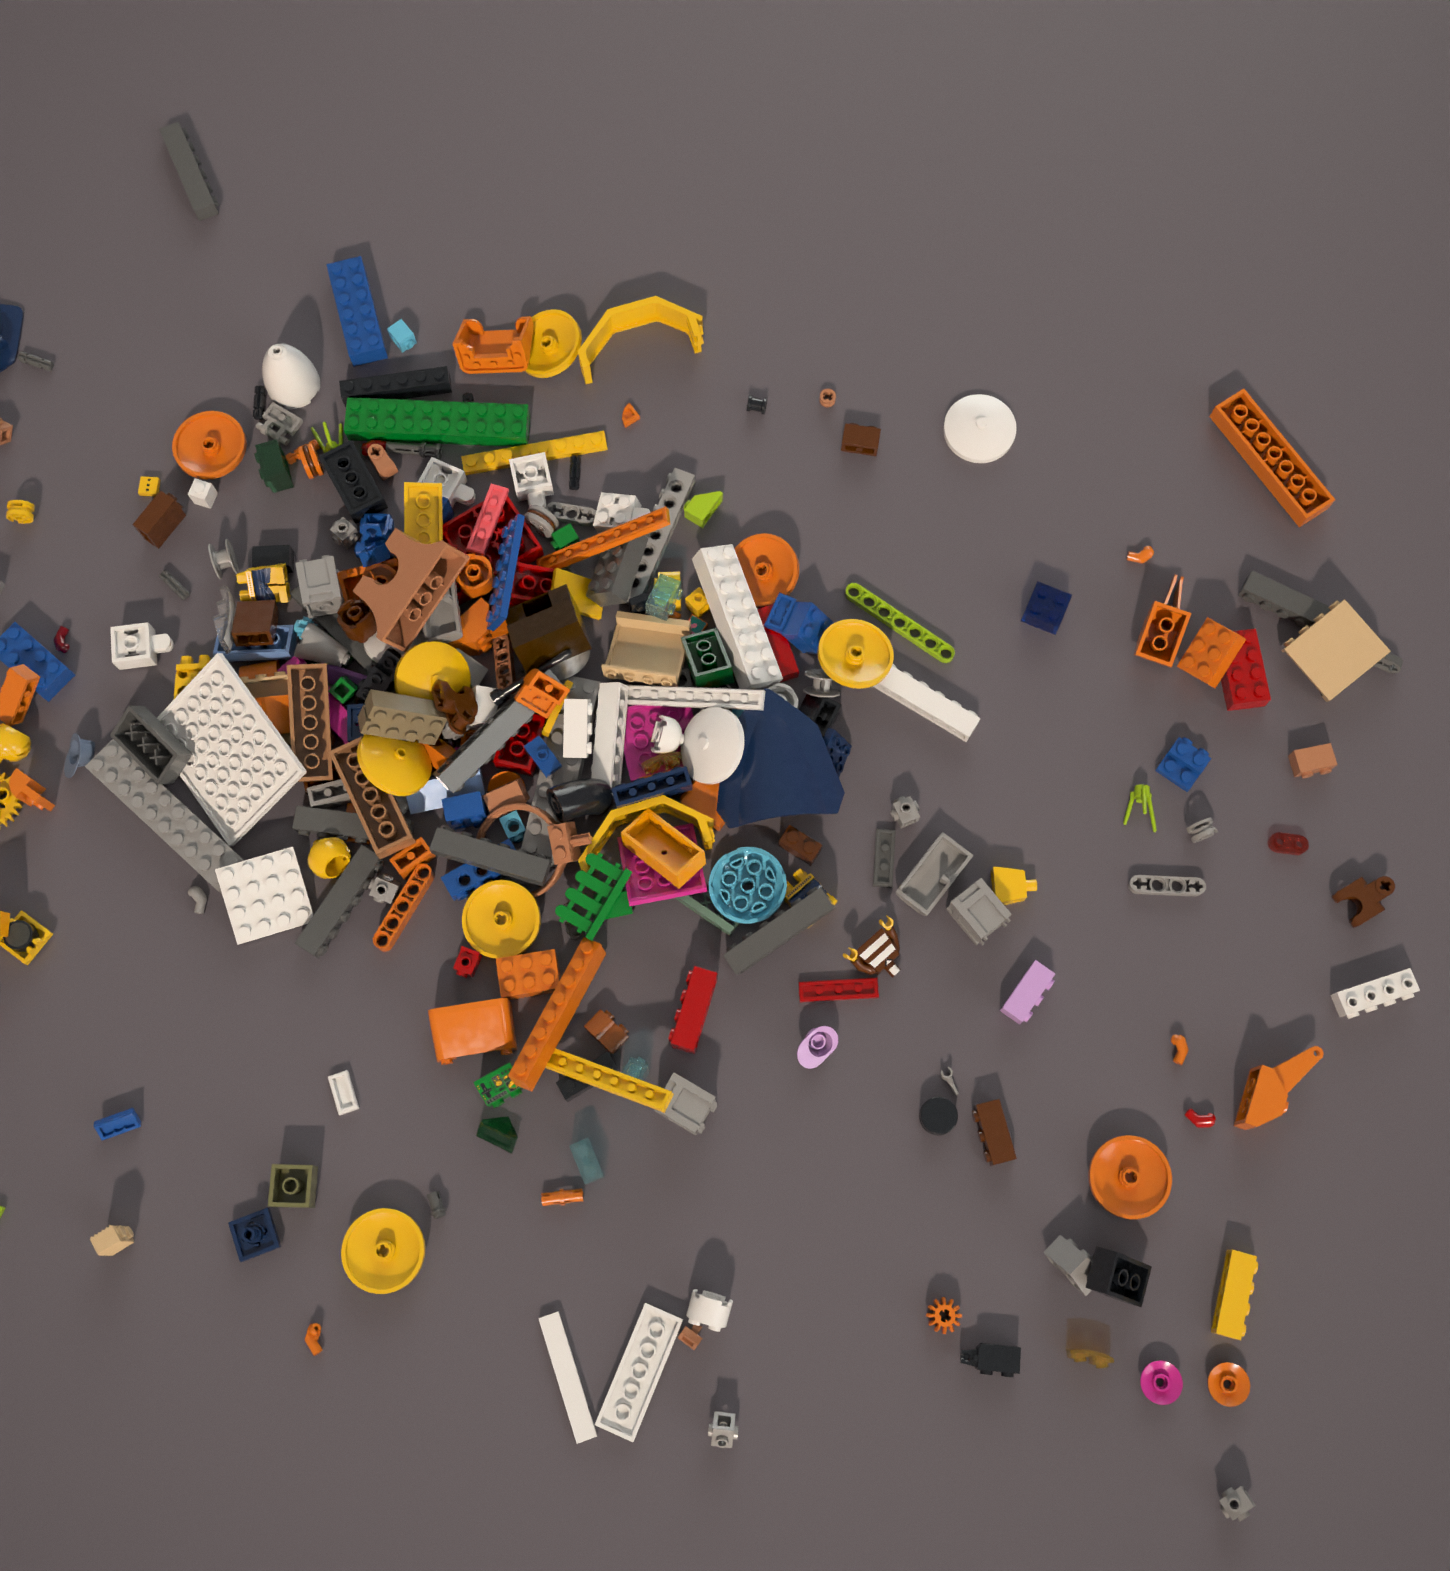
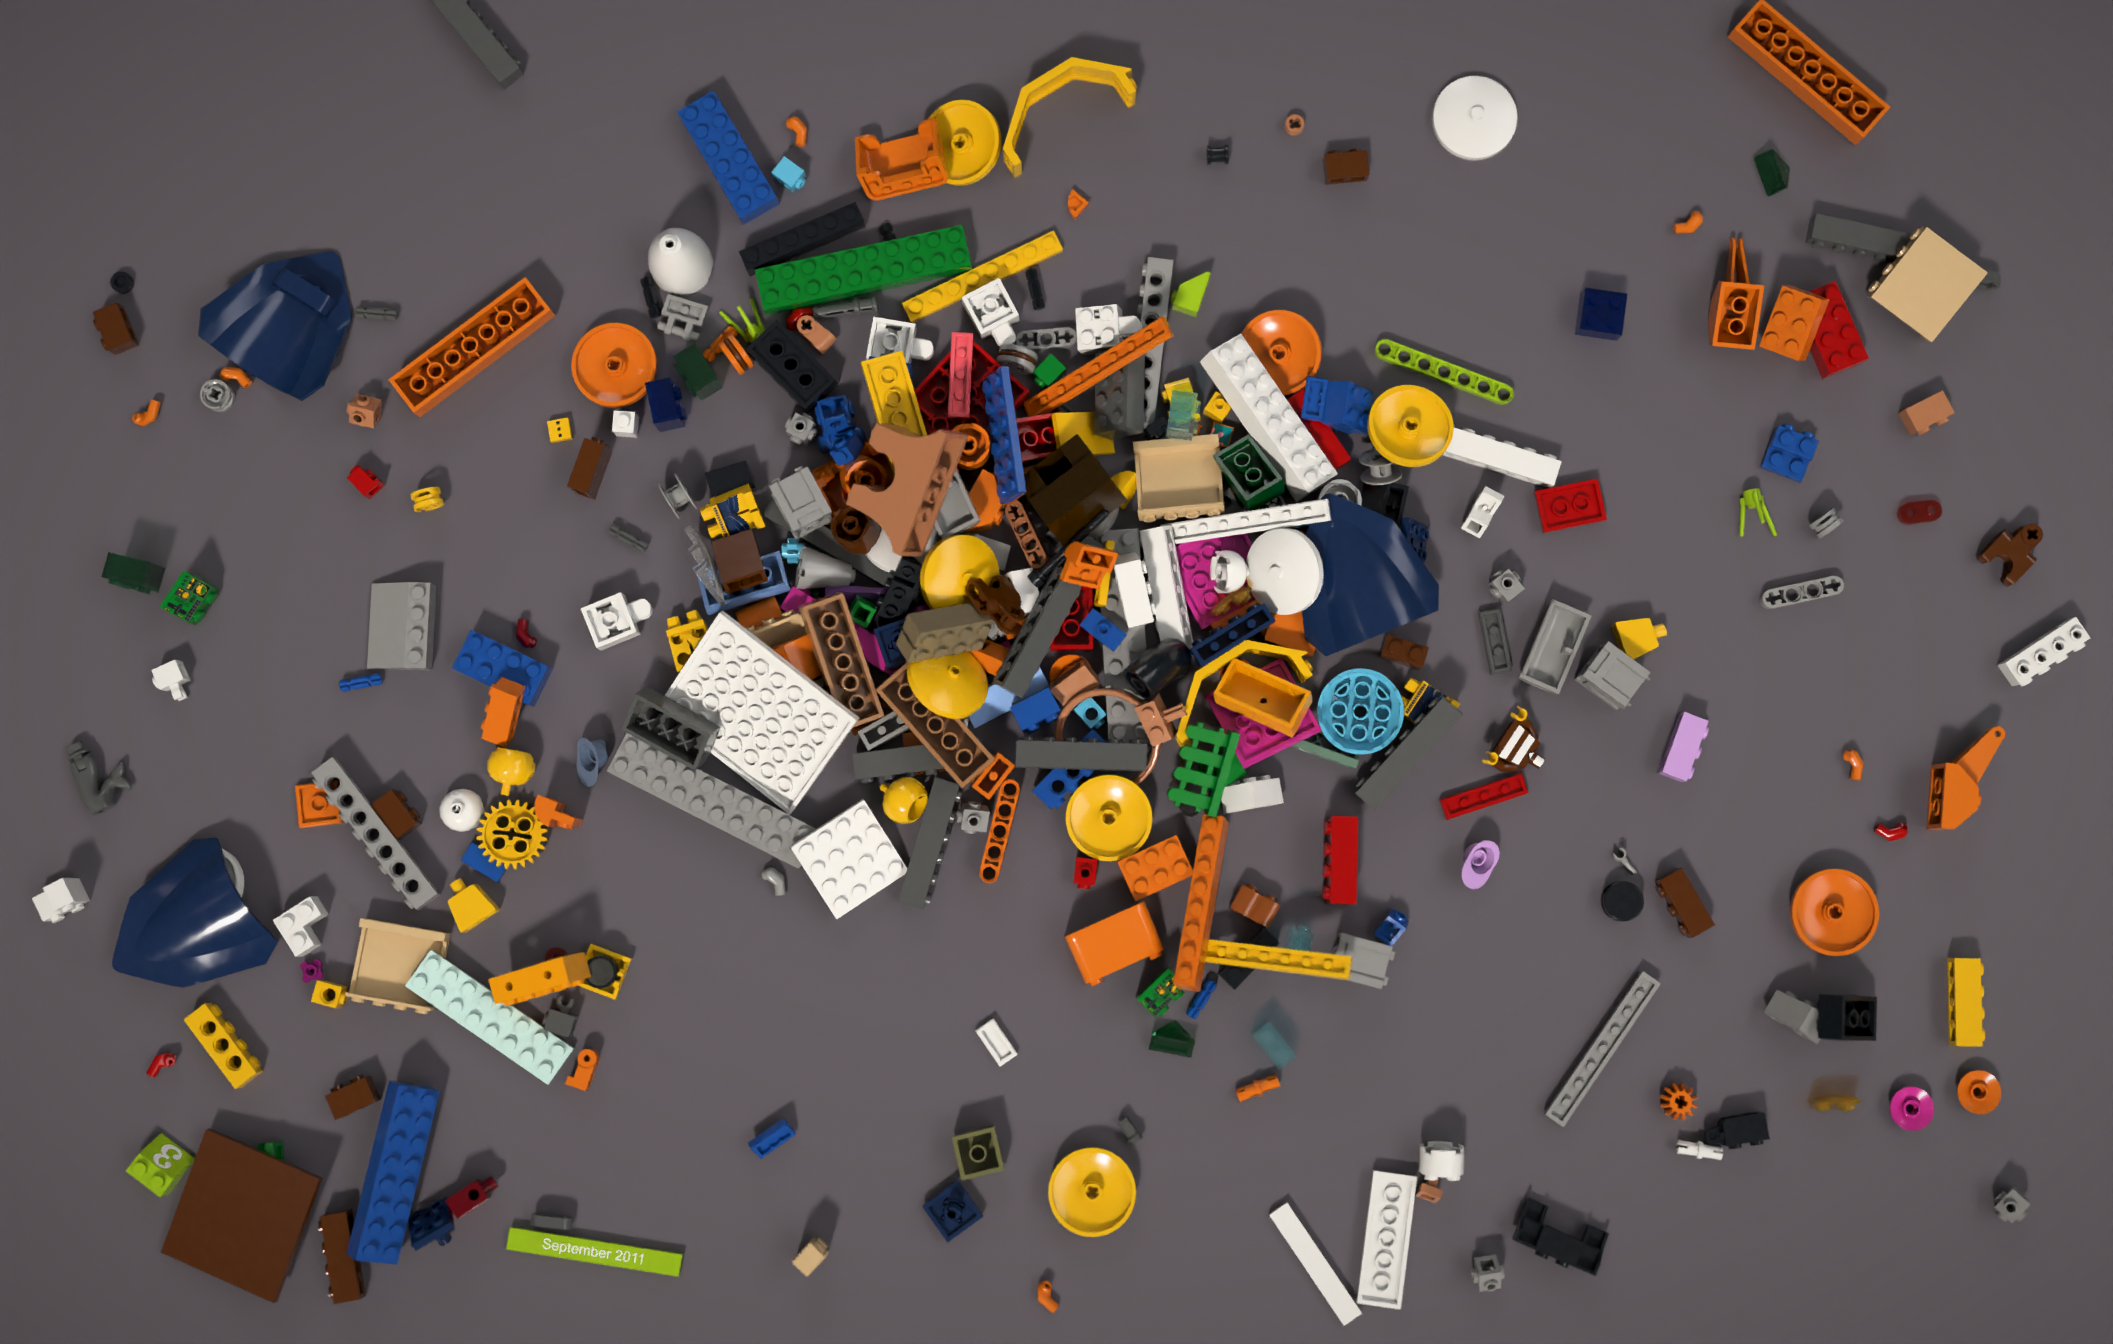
camera: 15 degrees left, 10 degrees up
(99, 403) = (471, 347): none -> orange brick
(239, 484) = (665, 404): none -> clear blue brick
(423, 305) = (800, 129): none -> orange arm
(536, 1103) = (1201, 999): none -> blue axle
(600, 648) = (1127, 484): none -> yellow brick
(632, 931) = (1252, 794): none -> white brick
(724, 1083) = (1392, 927): none -> blue bracket
(791, 1417) = (1548, 1241): none -> black bracket
(885, 1247) = (1602, 1048): none -> light grey plate
(901, 744) = (1482, 512): none -> white brick
(952, 1367) = (1699, 1149): none -> white pin
(979, 759) = (1570, 506): none -> red plate
(1222, 530) = (1772, 171): none -> clear green slope

